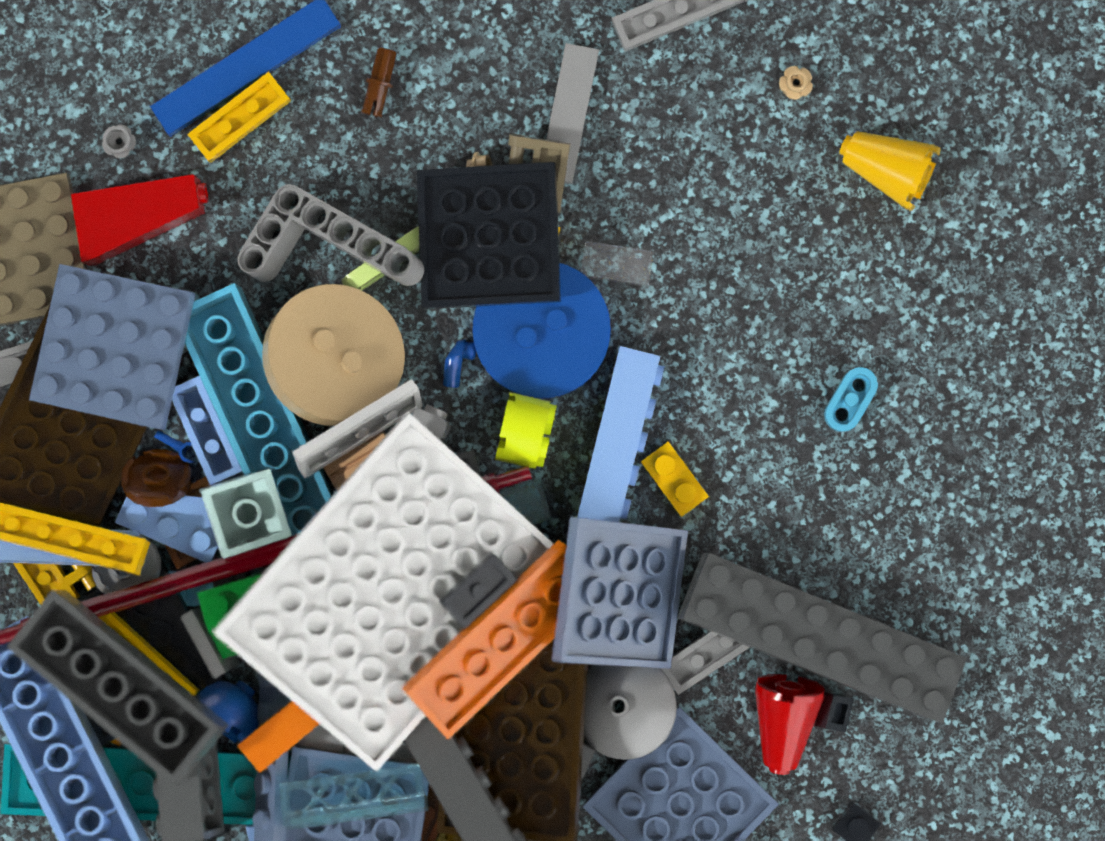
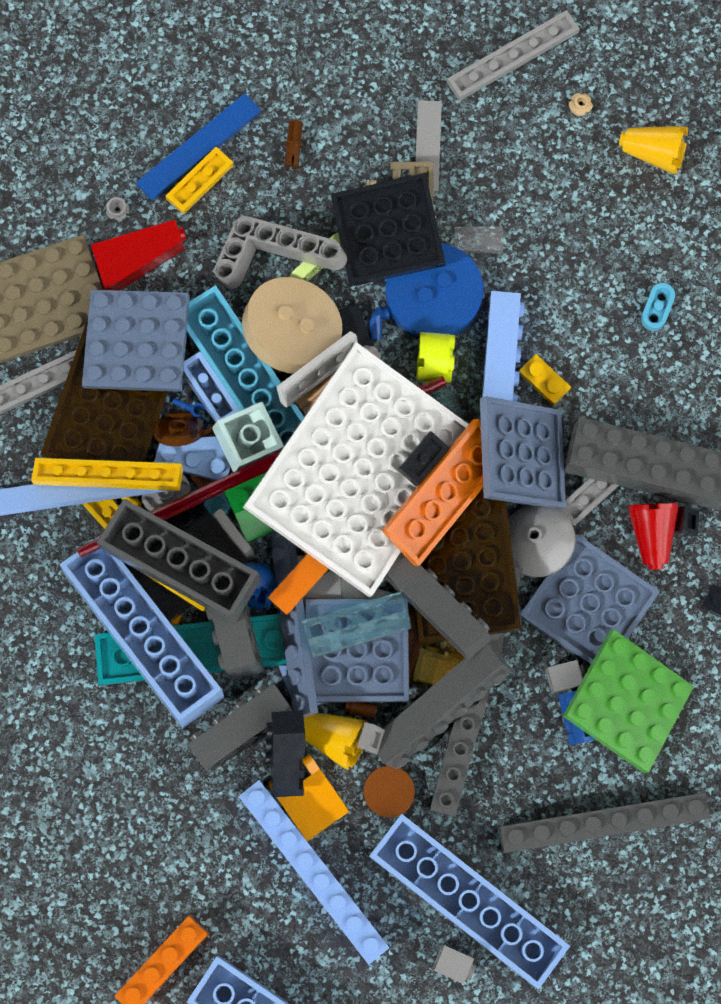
camera: 15 degrees left, 10 degrees down
(423, 365) = (353, 321): none -> black tile

